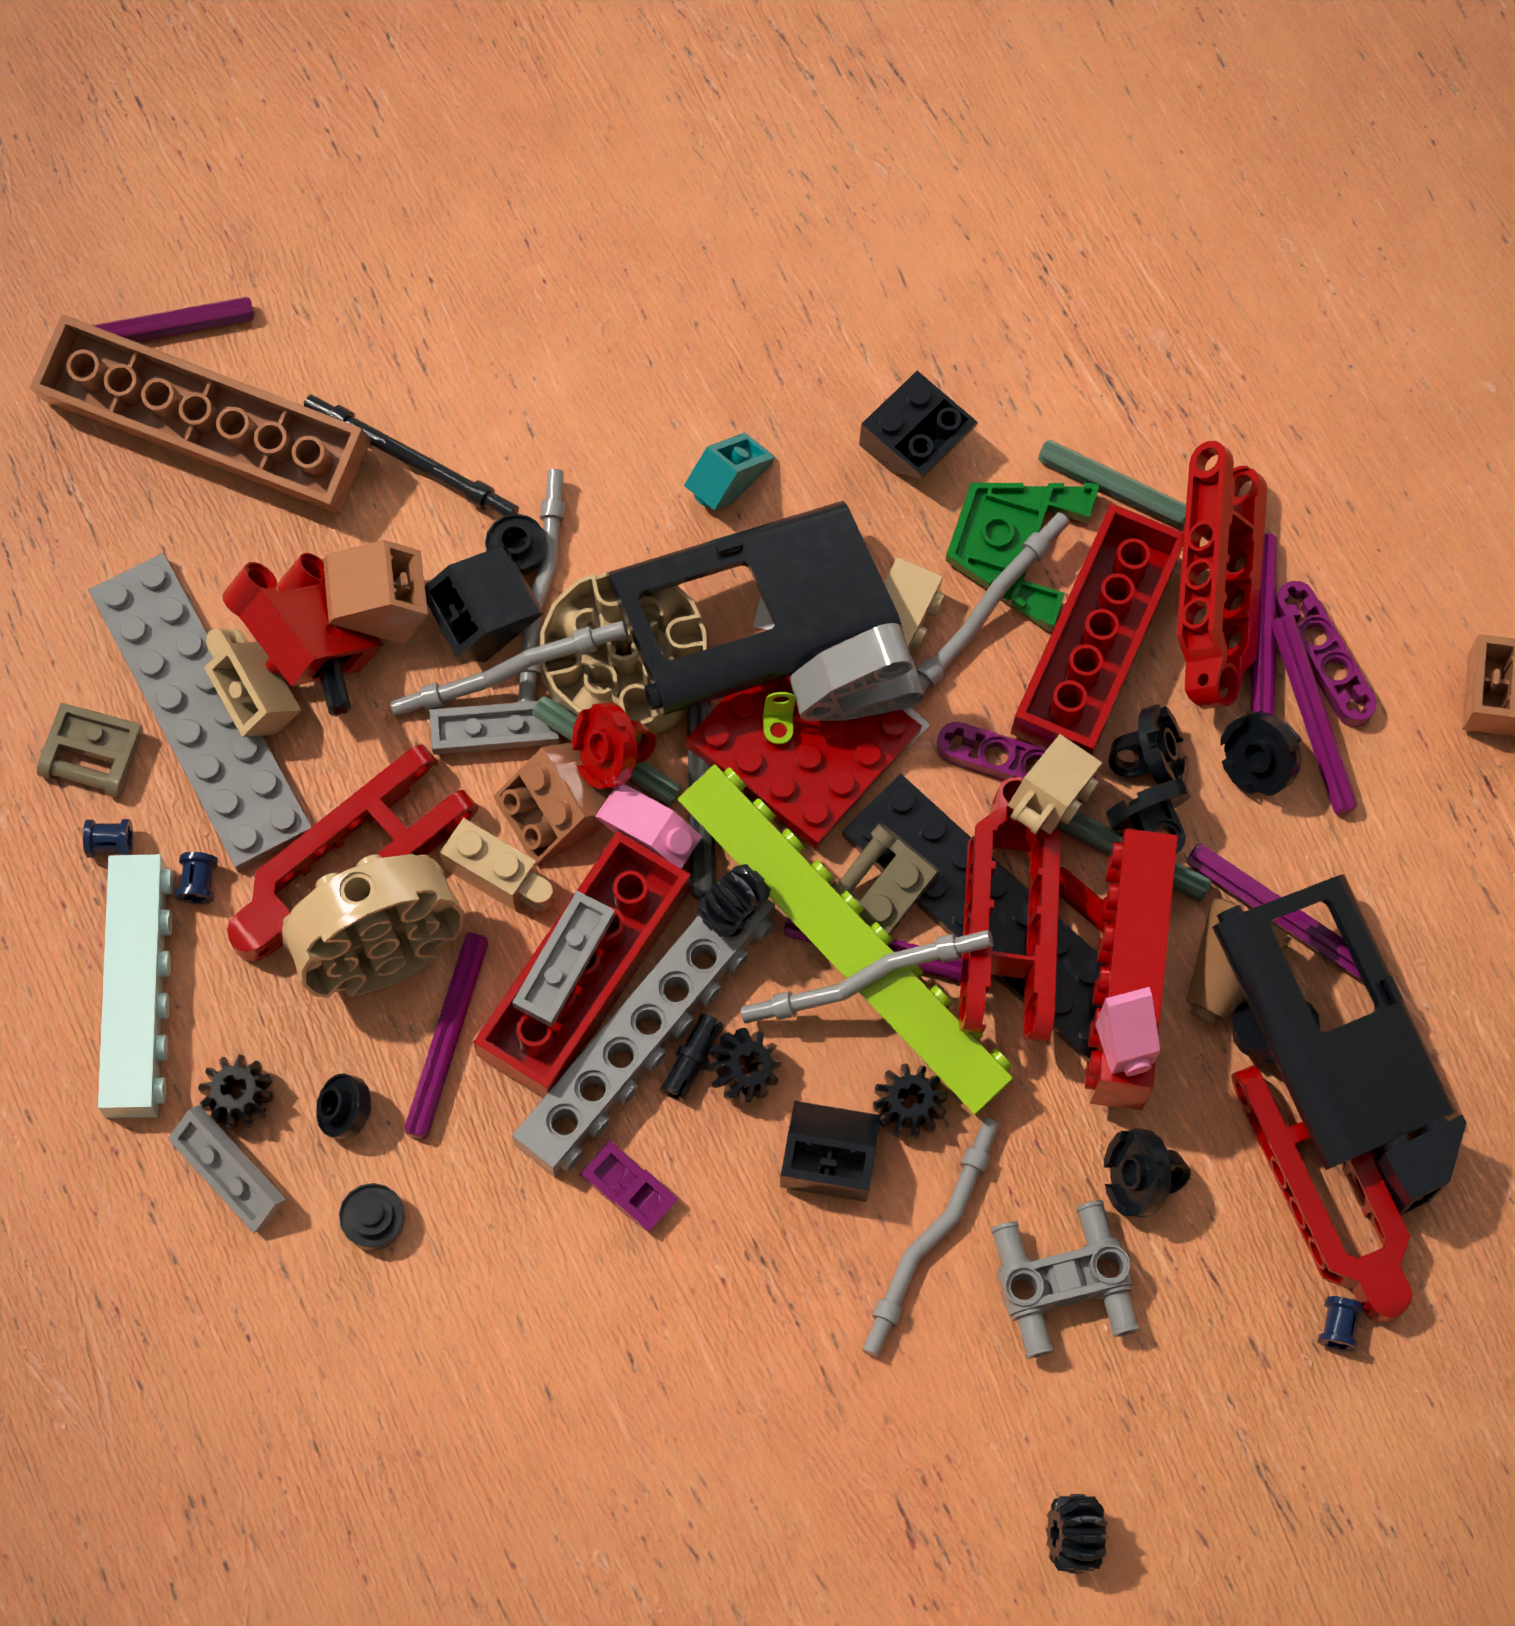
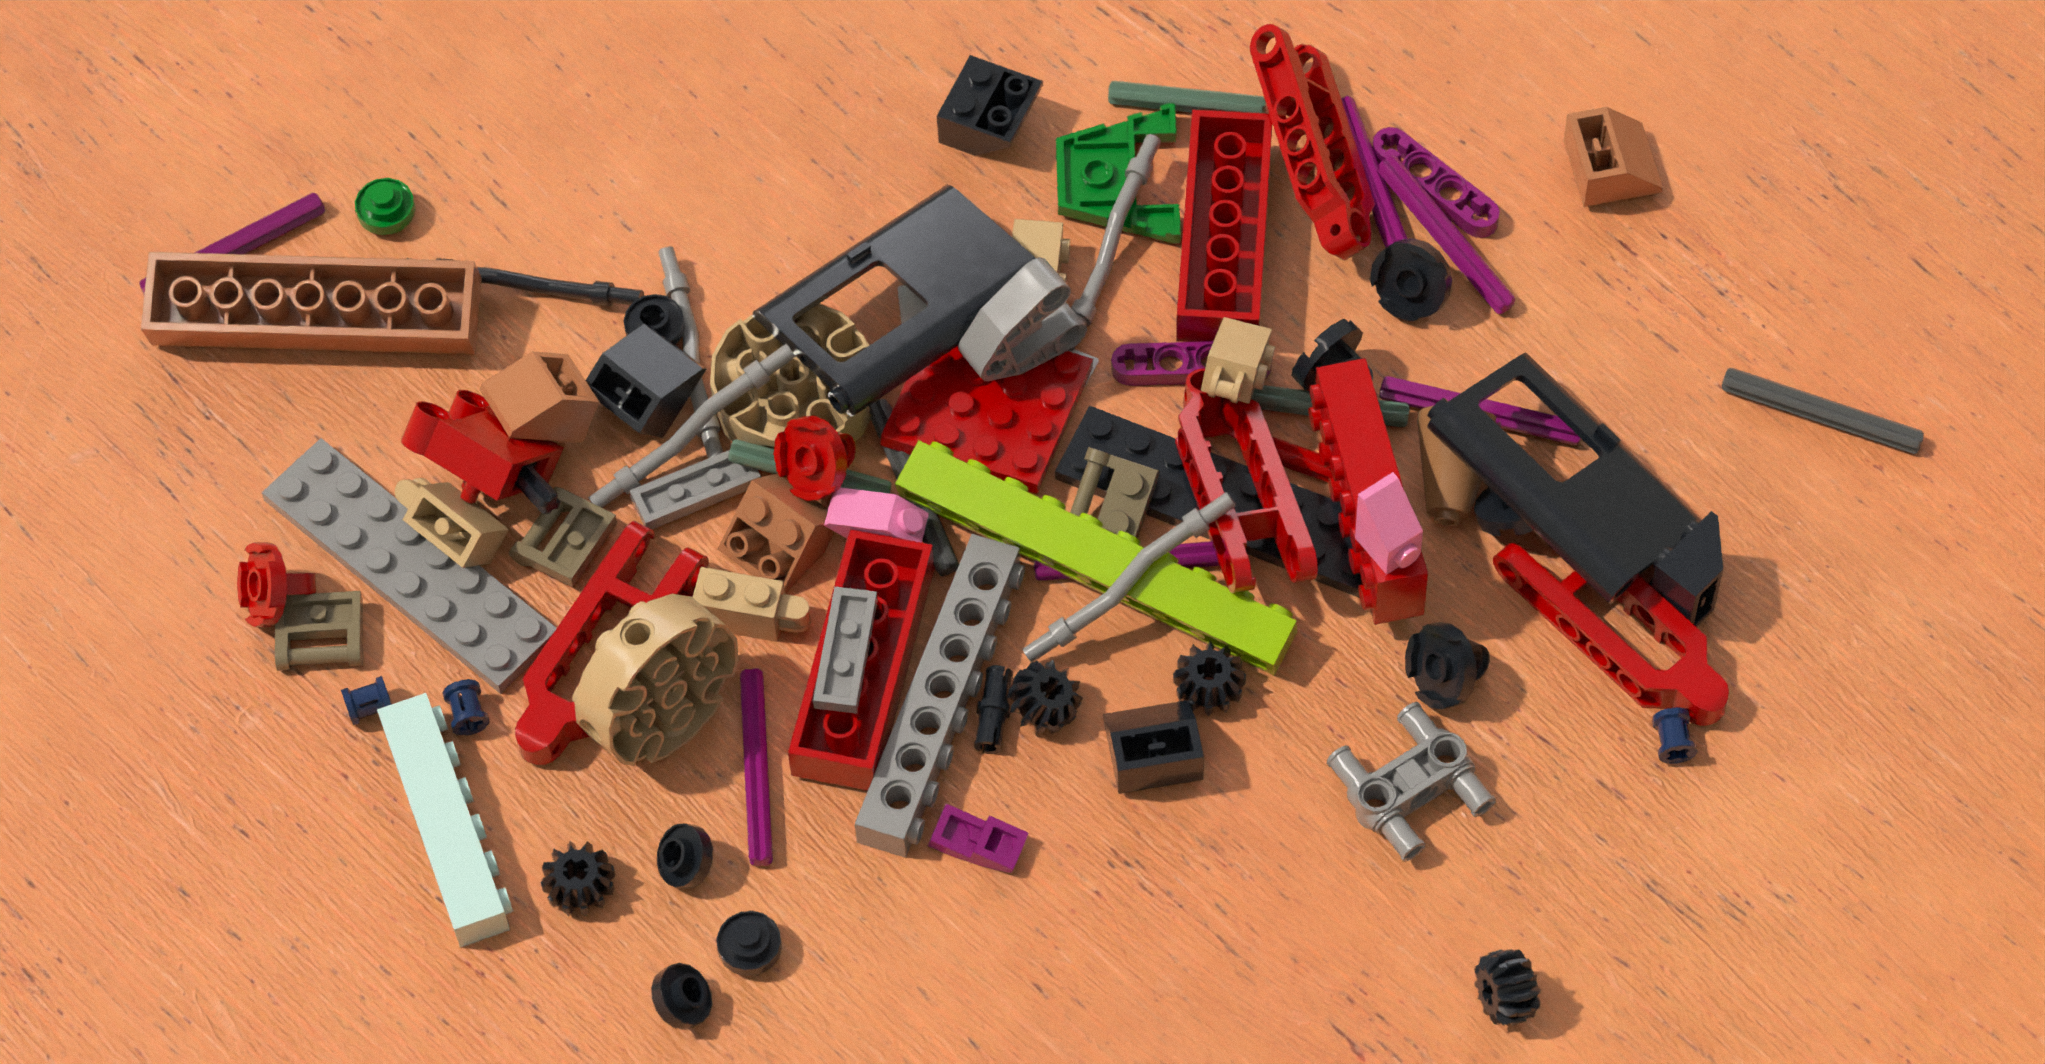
camera: 15 degrees left, 10 degrees down
(54, 689) = (265, 584): none -> red tile
(226, 1169) = (595, 947): light grey plate -> none
(287, 1250) = (681, 996): none -> black plate
(309, 334) = (385, 206): none -> green plate
(359, 743) = (572, 544): none -> dark tan plate
(727, 470) = (826, 200): teal slope -> none
(733, 900) = (982, 549): black gear -> none
(781, 713) = (959, 384): lime piece -> none
(888, 1309) = (1260, 861): light grey bar -> none
(1155, 746) = (1312, 303): black tile -> none

